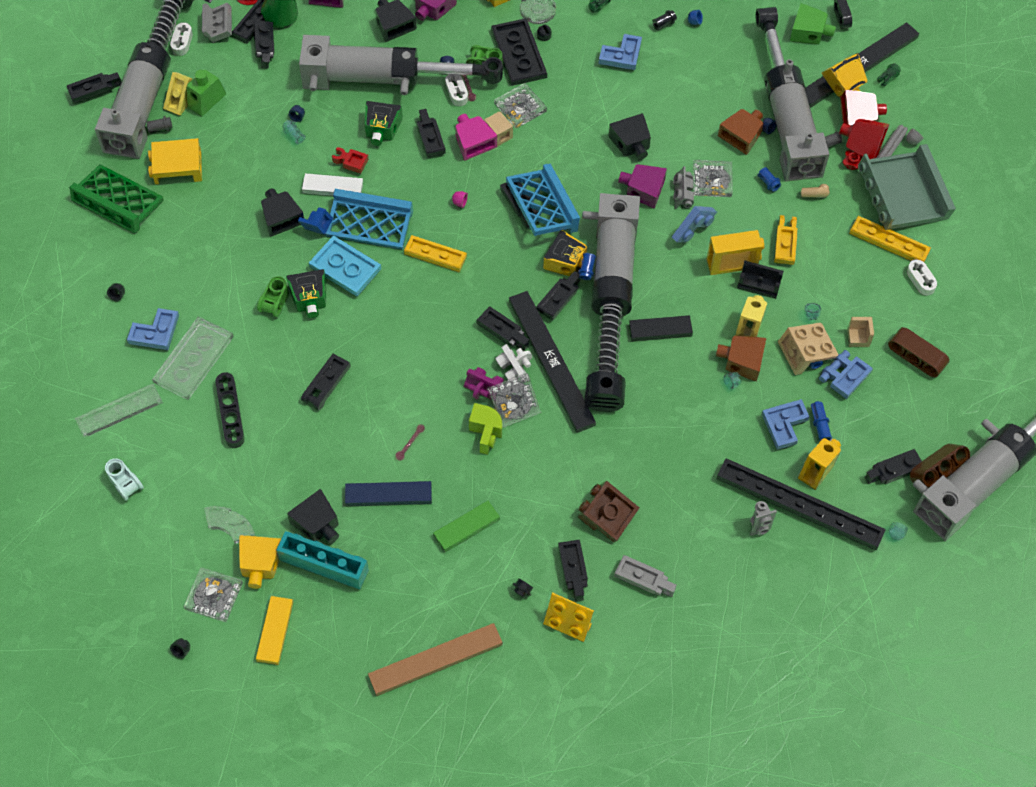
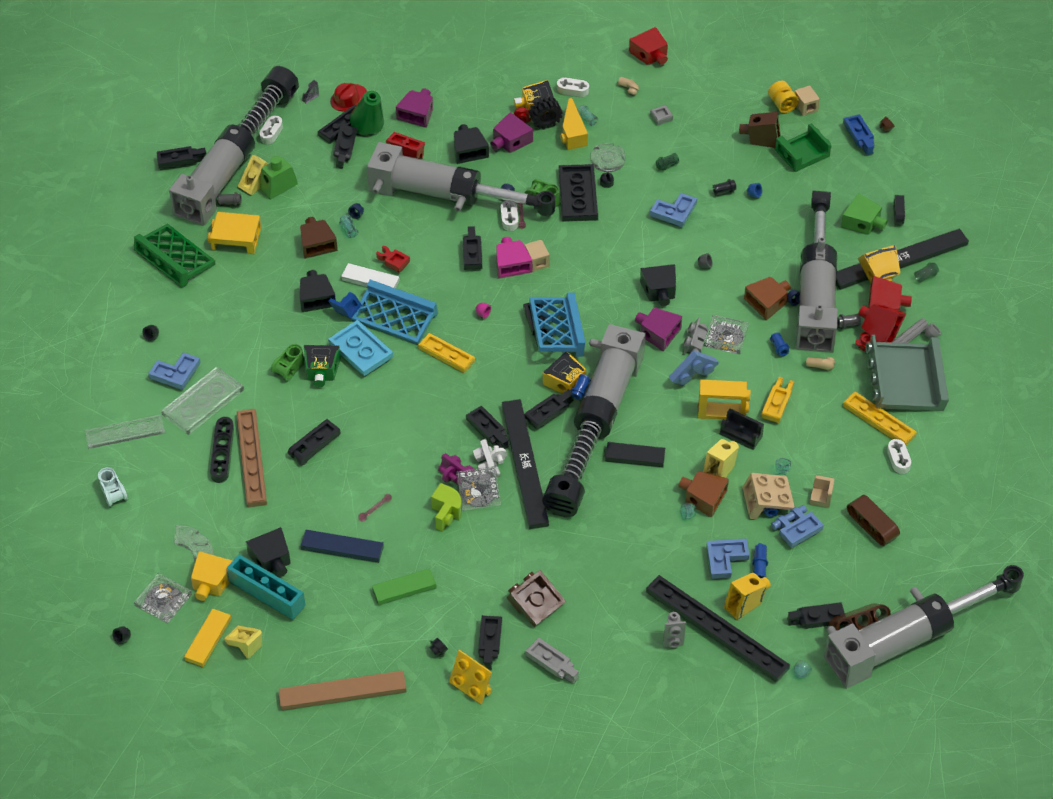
camera: 15 degrees right, 10 degrees down
(217, 22) = (306, 120): light grey bracket -> none
(264, 151) = (317, 238): none -> reddish brown torso
(264, 413) = (251, 458): none -> medium nougat tile
(315, 624) = (245, 638): none -> light yellow slope
(338, 32) = (410, 146): none -> red hinge
(382, 121) = (431, 230): torso -> none
(520, 105) = (565, 239): clear tile -> none
(668, 103) = (705, 261): none -> dark grey hinge

